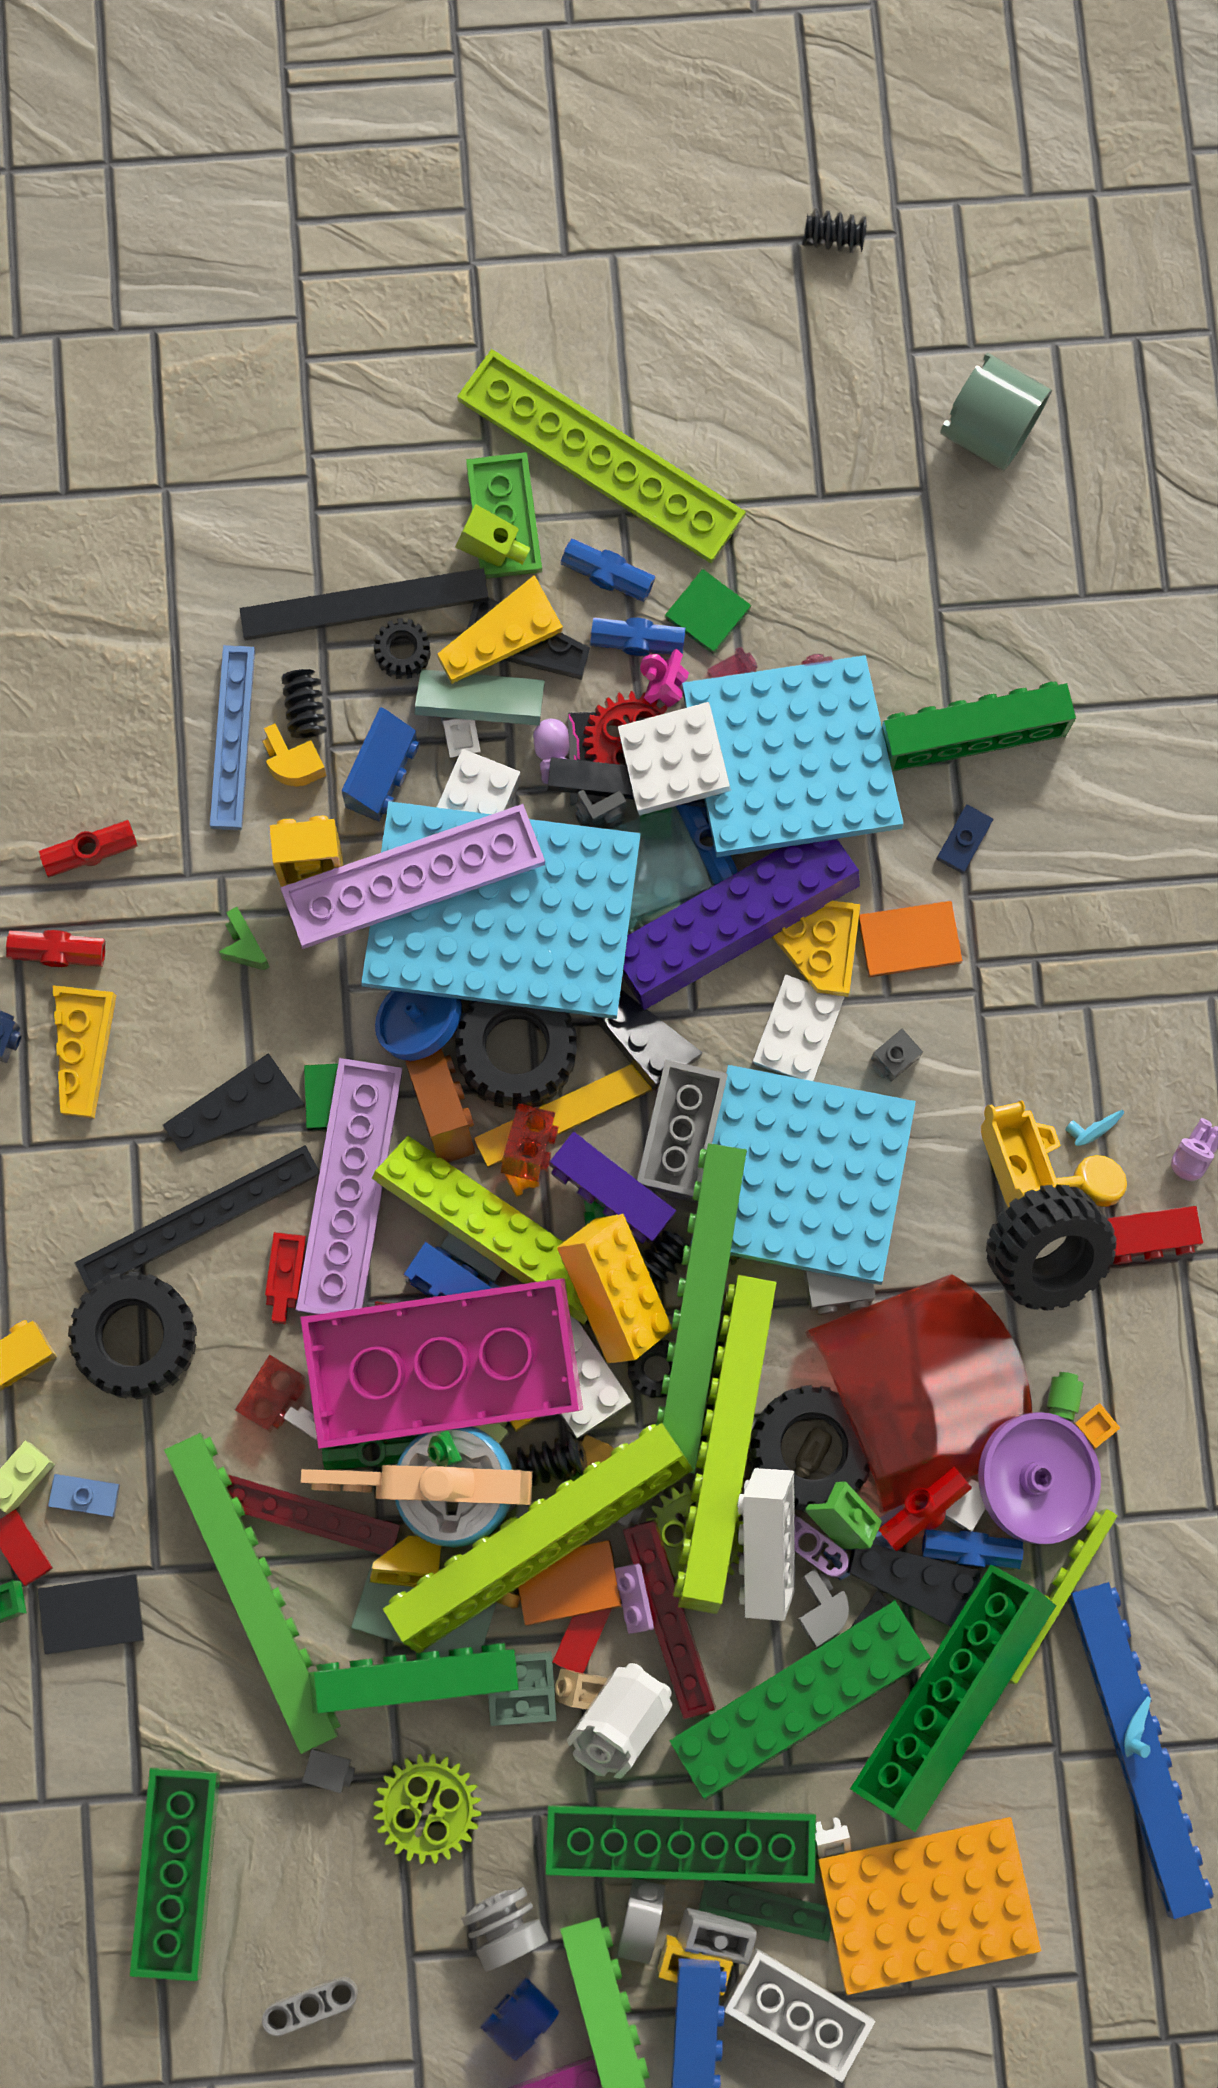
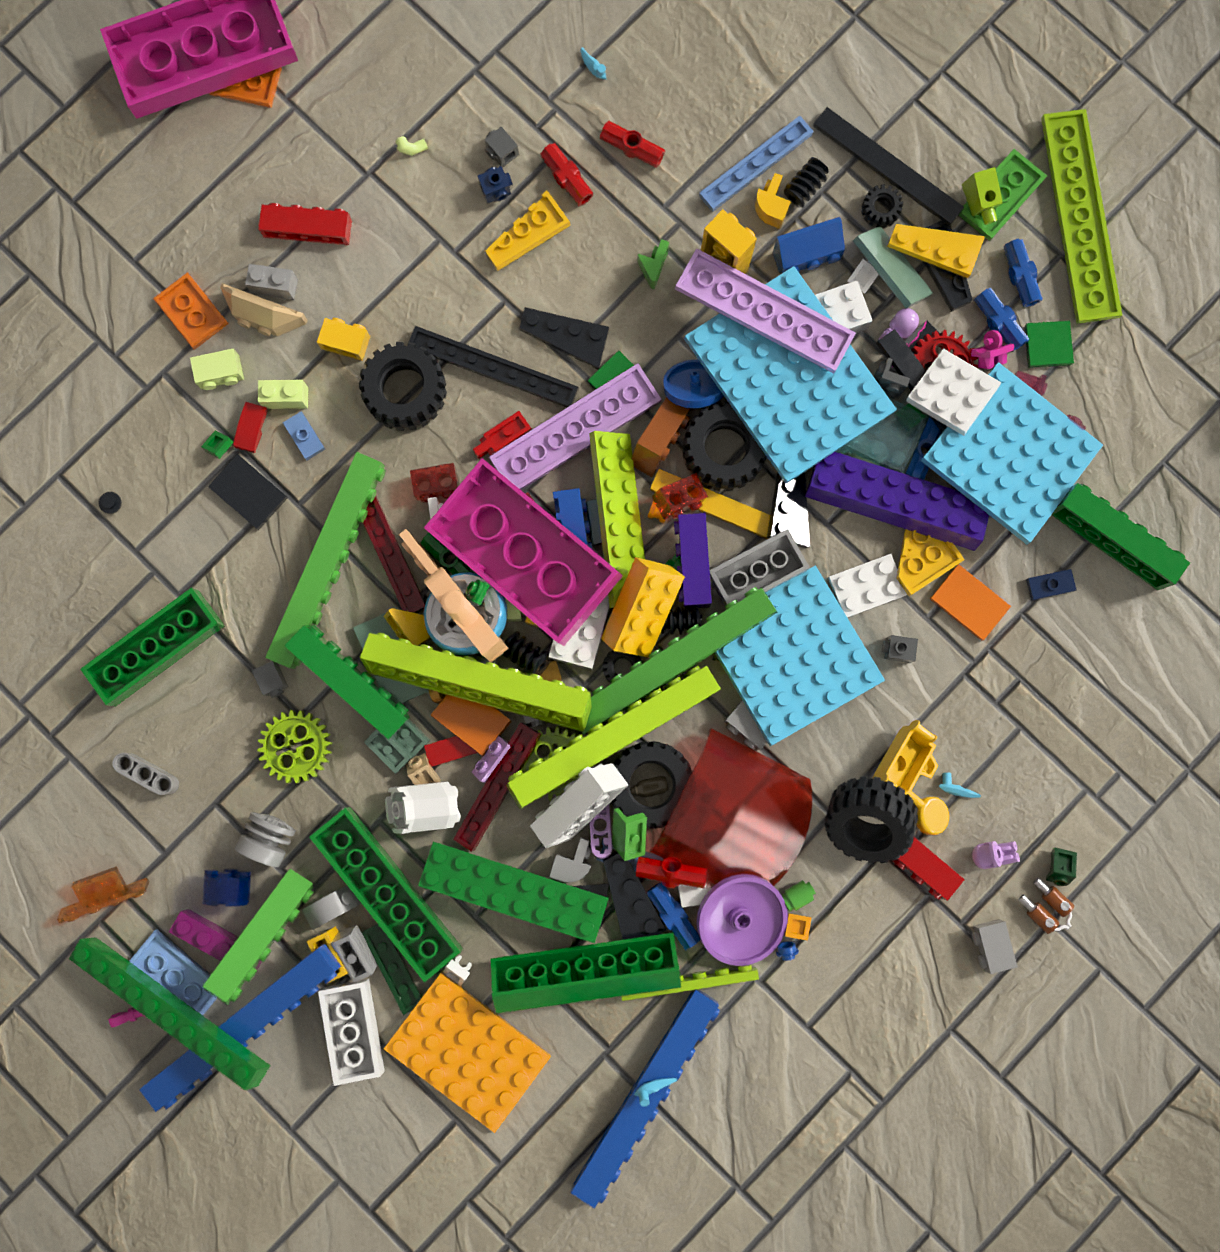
camera: 55 degrees right, 5 degrees up
(1112, 1459) = (787, 950): none -> blue plate

